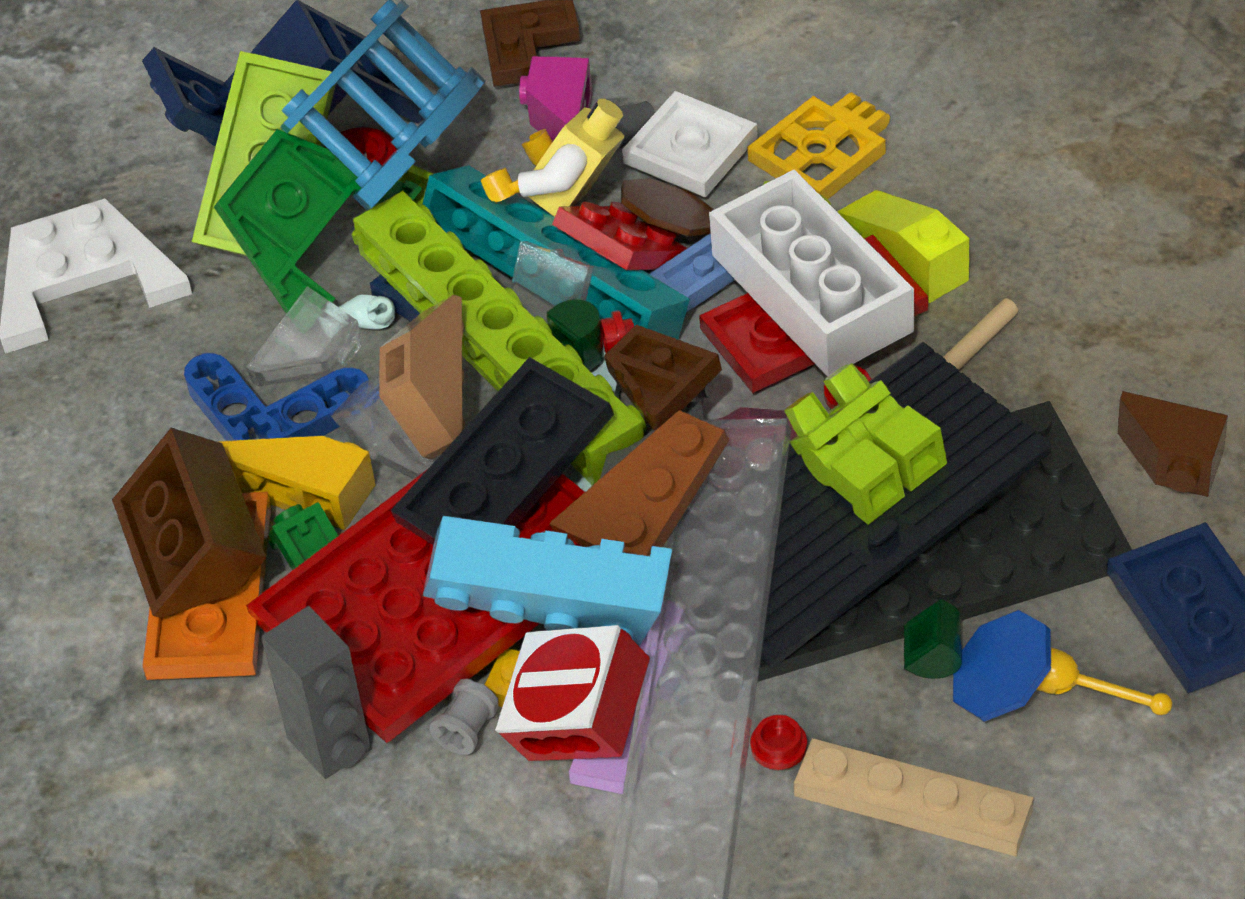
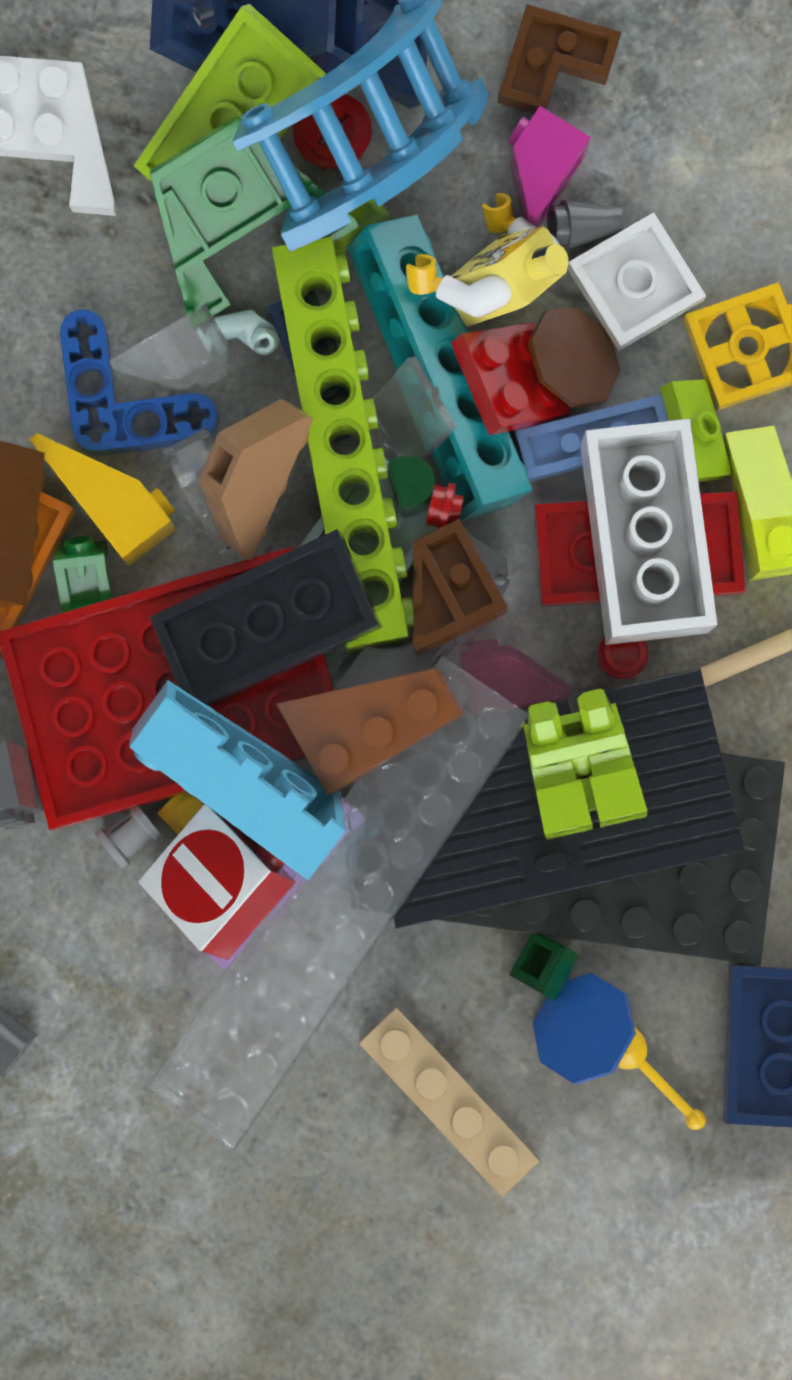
camera: 20 degrees right, 35 degrees up
(778, 742) = (369, 994): red plate -> none

